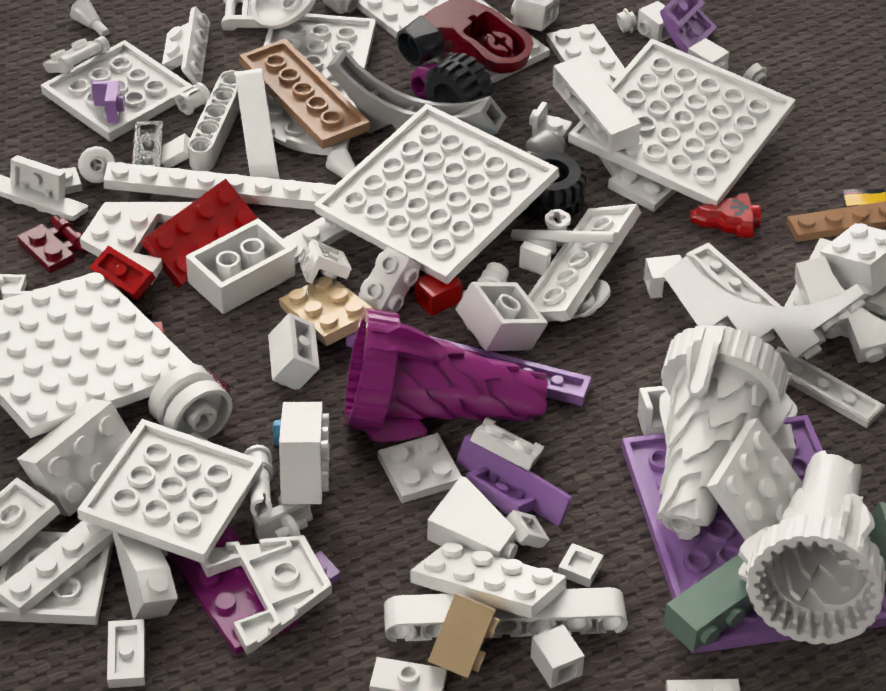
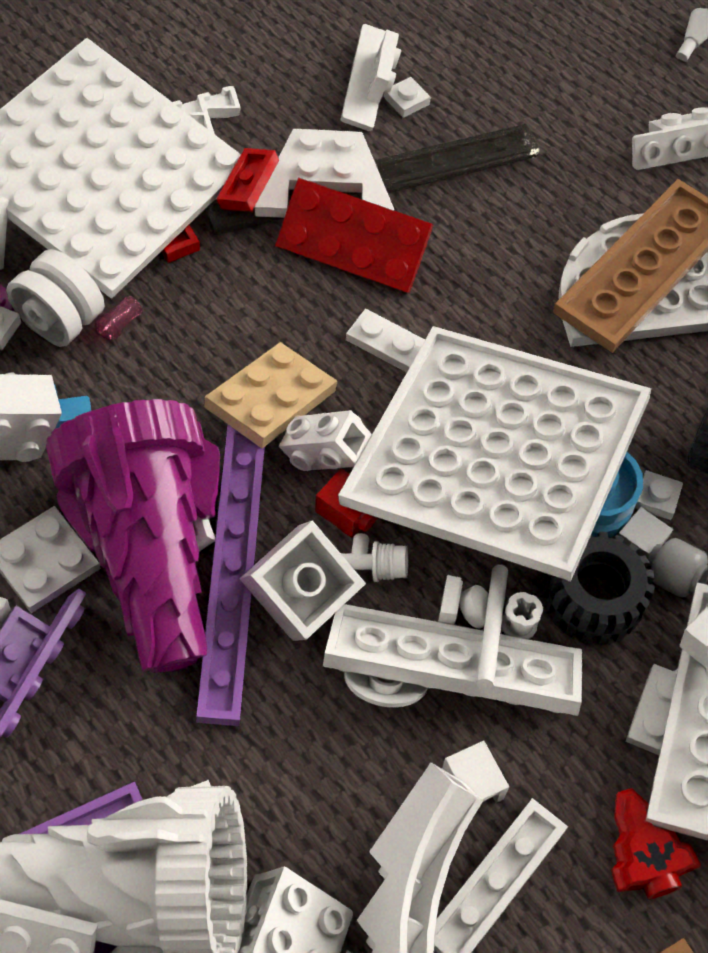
camera: 70 degrees right, 15 degrees up
(46, 246) = (297, 111): dark red plate -> none
(64, 61) = (605, 33): white plate -> none
(90, 155) = (432, 110): white head -> none
(109, 95) = (536, 87): medium lavender bracket -> none
(143, 81) = (580, 95): white plate -> none
(175, 151) = (496, 176): white tile -> none
(193, 98) = (597, 166): white bush -> none
(196, 183) = (448, 237): white plate -> none
(214, 123) = (565, 197): white beam -> none
(240, 265) = (308, 286): white brick -> none
(256, 124) = (561, 233): white beam -> none
(293, 351) = (181, 374): white brick -> none
(323, 257) = (348, 368): white bracket -> none
(340, 162) = (547, 341): white cone -> none
(389, 106) = (663, 438): light grey arch -> none
(507, 444) = (66, 636): white plate -> none

